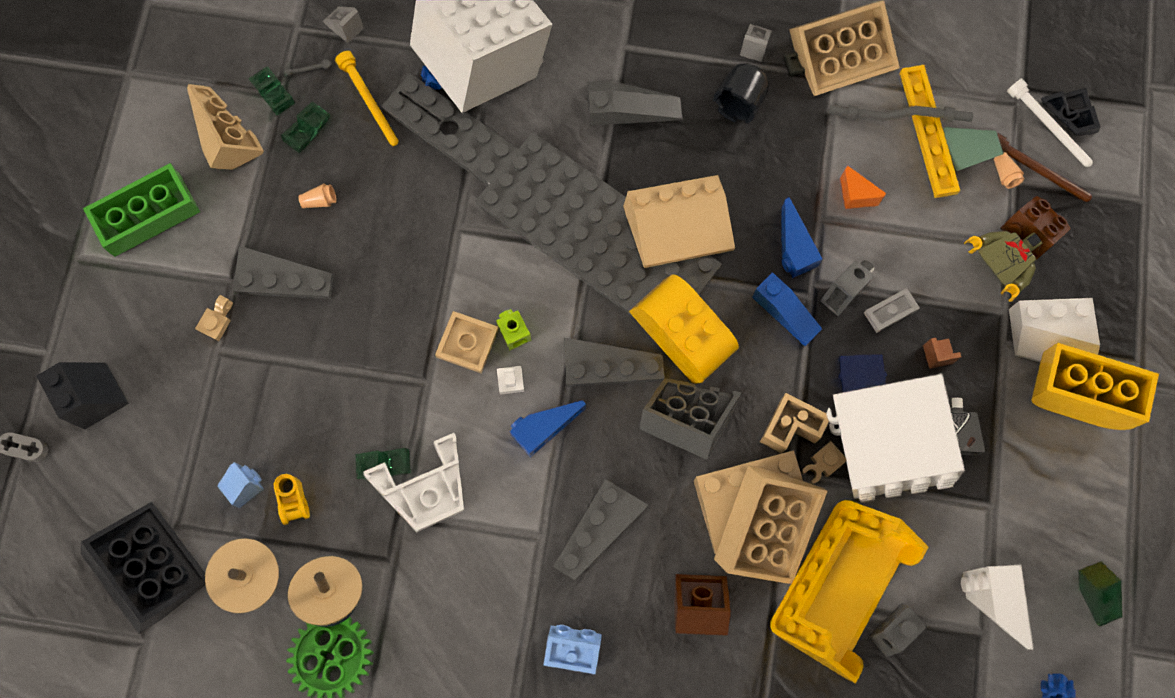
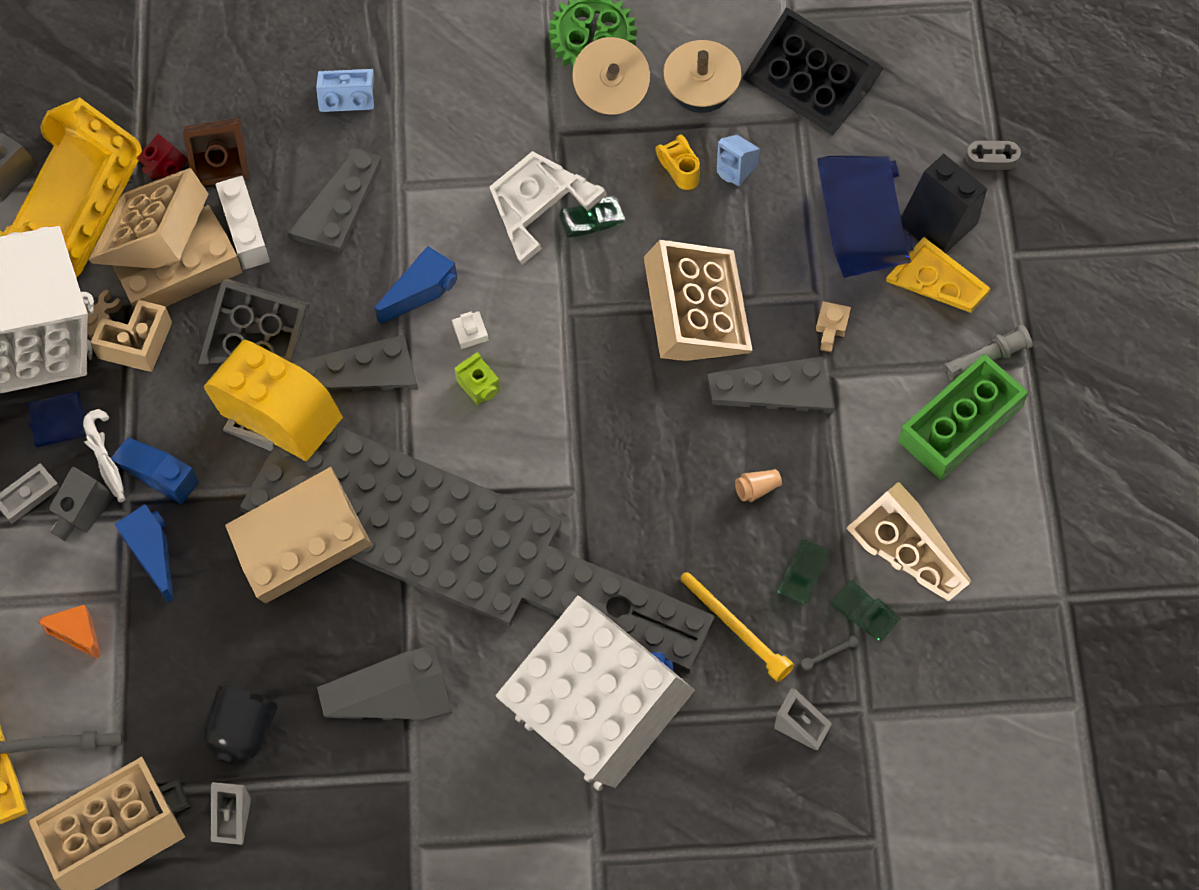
camera: 170 degrees right, 10 degrees down
(90, 266) = (1000, 347): none -> light grey pin
(114, 341) = (939, 278): none -> yellow wing
(148, 404) = (864, 213): none -> clear blue windscreen
(318, 359) = (696, 301): none -> tan slope
(467, 342) = (529, 356): tan plate -> none
(687, 520) = (242, 222): none -> white brick
(752, 602) = (161, 158): none -> dark red brick
(824, 318) = (95, 441): none -> white piece

